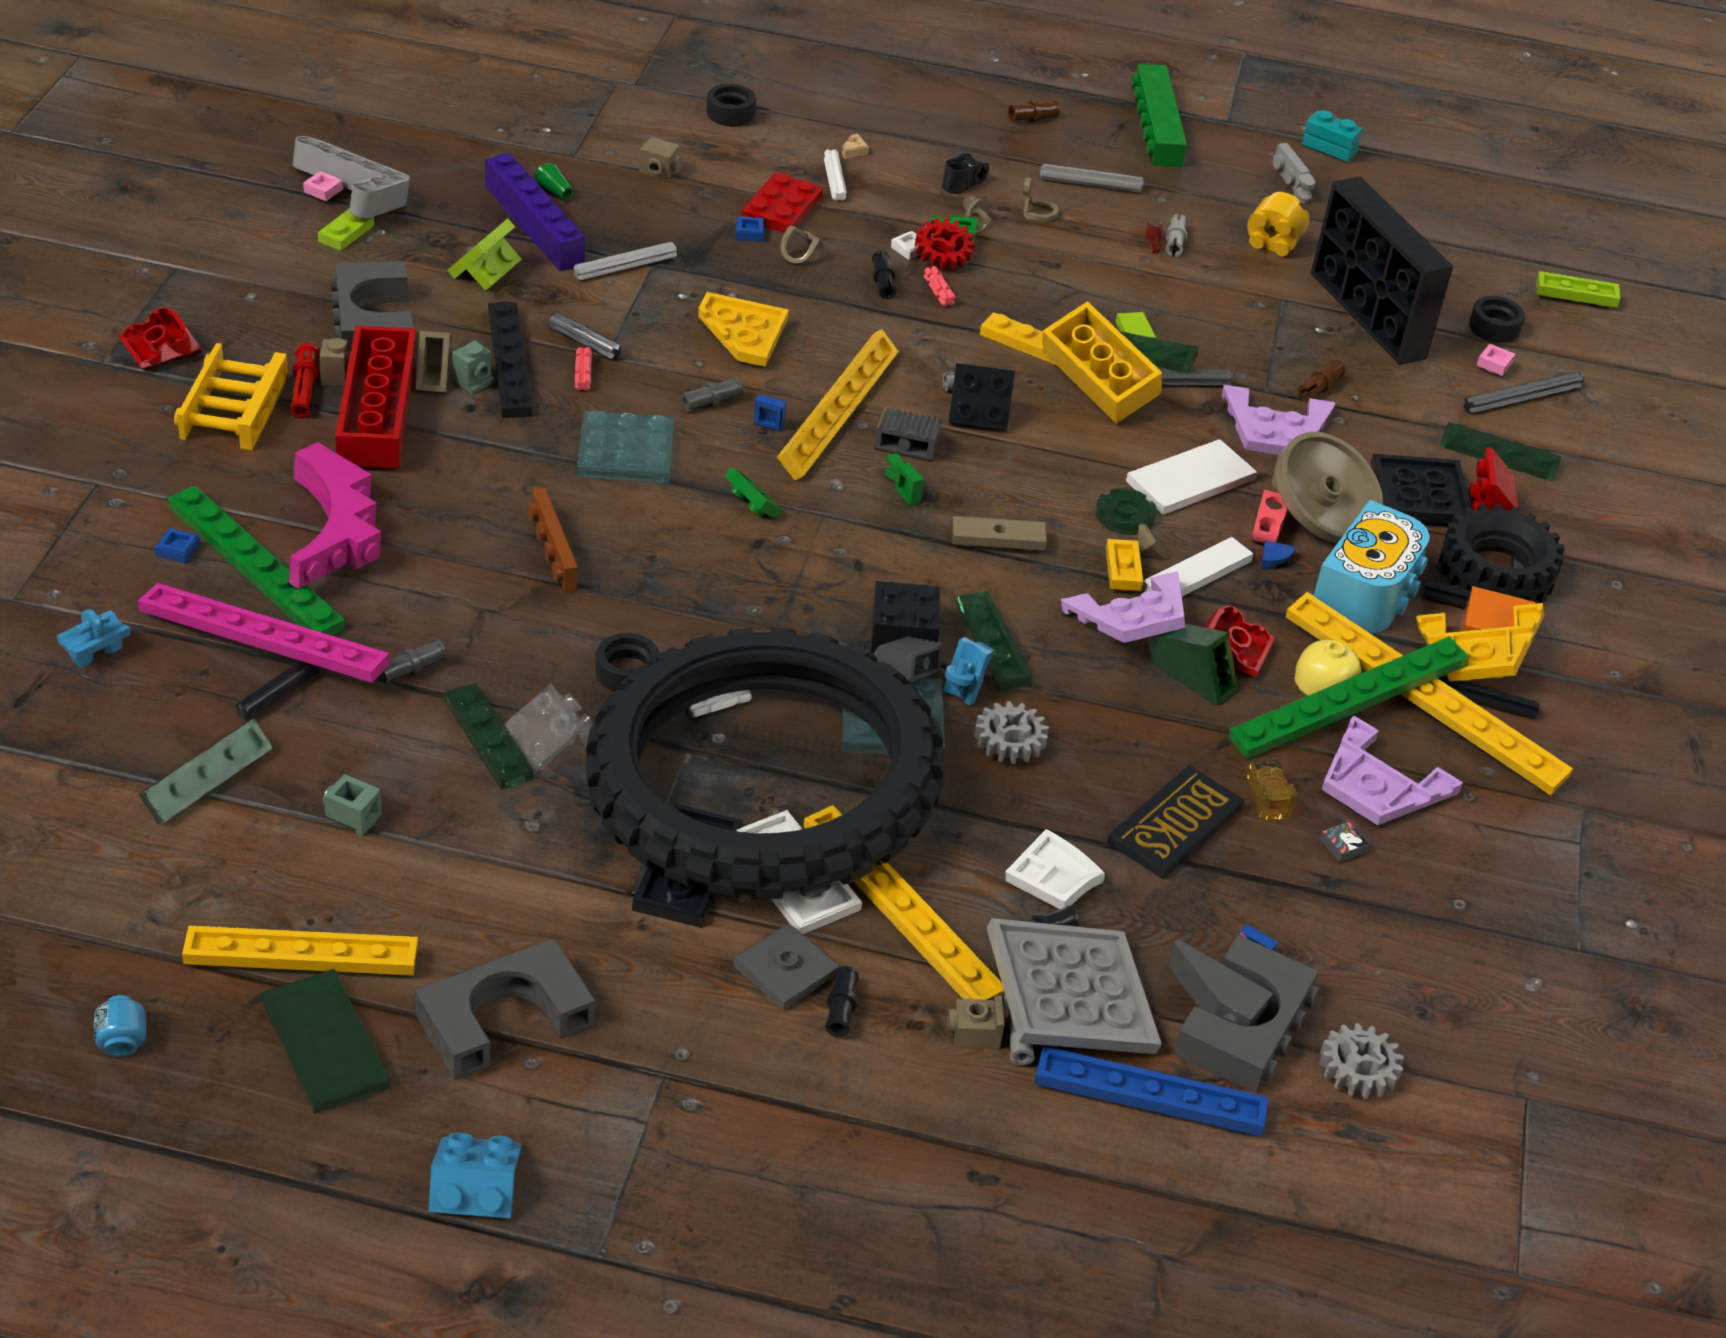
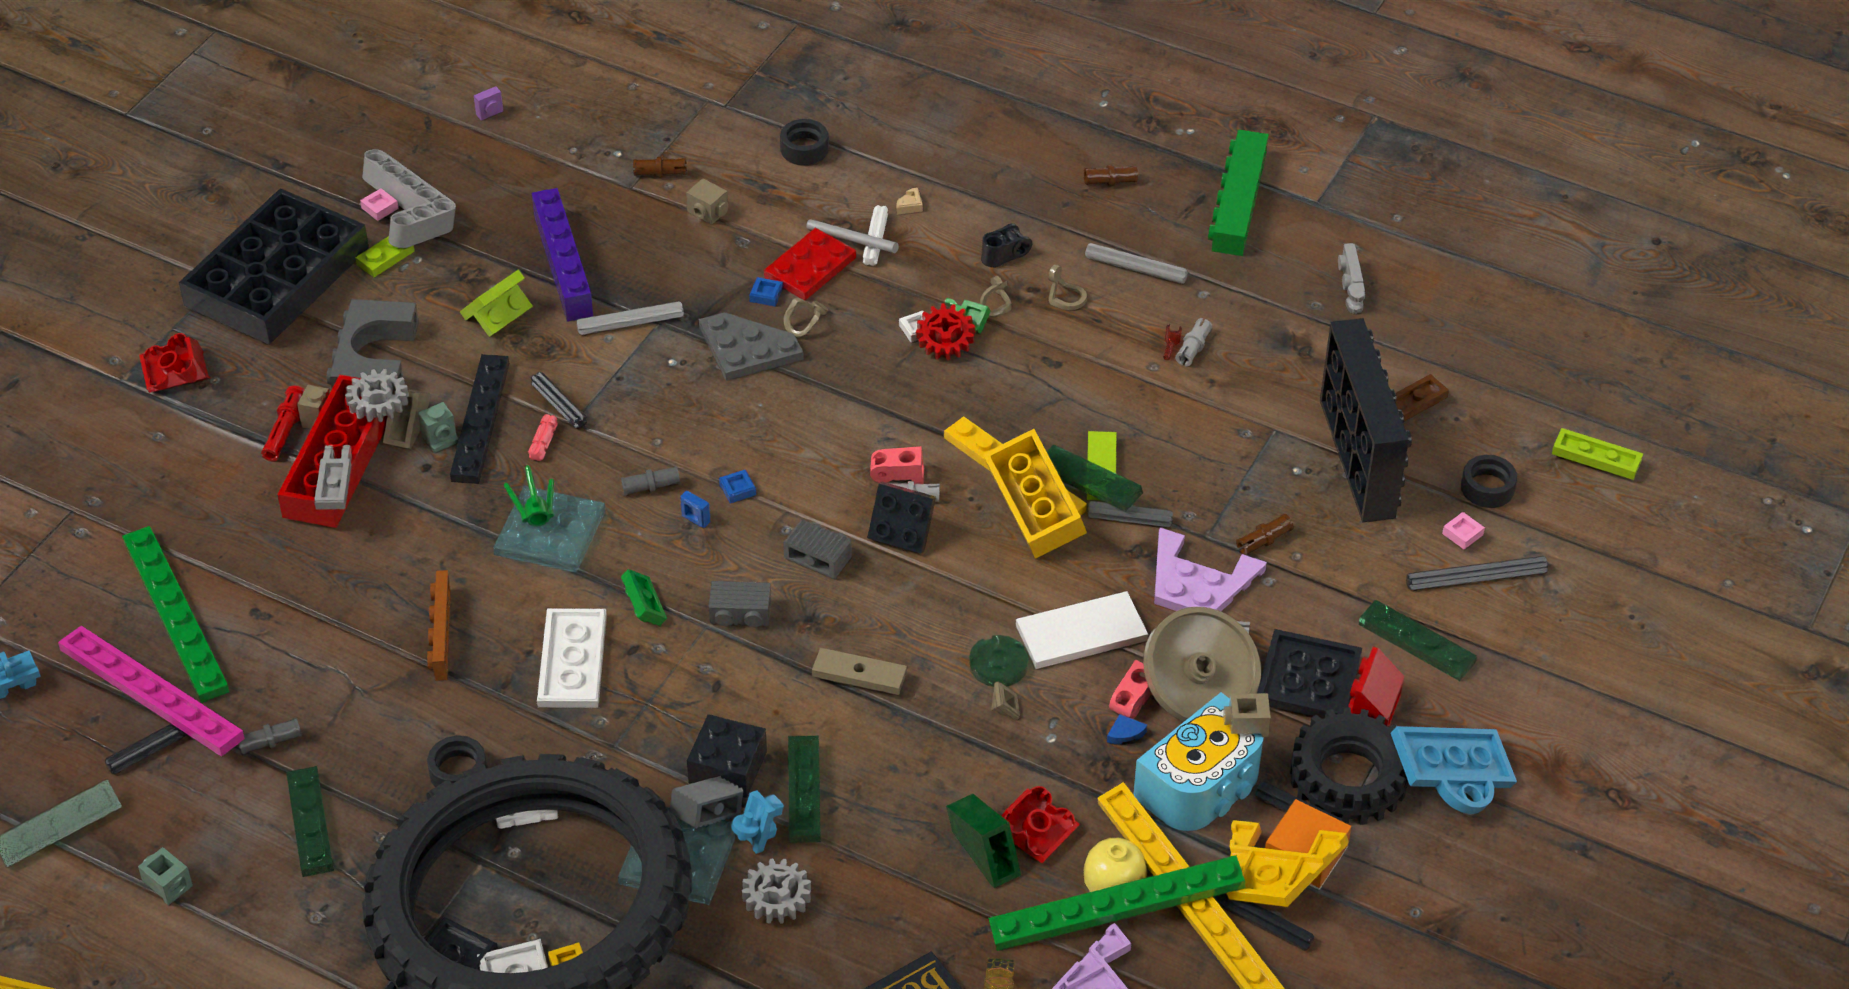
camera: 20 degrees right, 5 degrees up
(177, 545) = (115, 586): blue tile -> none
(236, 243) = (274, 266): none -> black brick
(254, 410) = (229, 451): yellow fence -> none
(351, 515) = (268, 576): dark pink arch -> none
(395, 414) = (333, 479): none -> light grey hinge
(400, 94) = (488, 103): none -> medium lavender plate
(409, 335) = (377, 395): none -> light grey gear
(548, 726) = (360, 821): clear bracket -> none
(552, 179) = (595, 217): green cone -> none
(597, 134) = (659, 166): none -> reddish brown pin
(612, 422) = (536, 510): none -> green plant
(701, 556) = (572, 658): none -> white tile
(744, 326) = (712, 406): yellow plate -> none
(752, 274) = (747, 346): none -> dark grey plate
(799, 392) = (737, 486): none -> blue tile
(820, 175) = (854, 236): none -> light grey bar
(837, 405) = (764, 507): yellow plate -> none
(853, 487) = (740, 603): none -> dark grey brick
(884, 274) = (873, 360): black pin -> none
(908, 481) = (796, 603): green plate -> none
(939, 286) = (924, 379): coral axle -> none
(943, 355) = (898, 465): none -> coral leg
(1124, 565) = (966, 722): yellow plate -> none
(1137, 617) = (948, 786): lavender wing -> none
(1207, 565) = (1038, 738): white tile -> none
(1277, 223) = (1297, 343): yellow brick -> none
(1332, 135) = (1414, 236): teal brick -> none
(1413, 509) = (1248, 714): none -> dark tan brick
(1599, 538) = (1455, 763): none -> dark azure plate

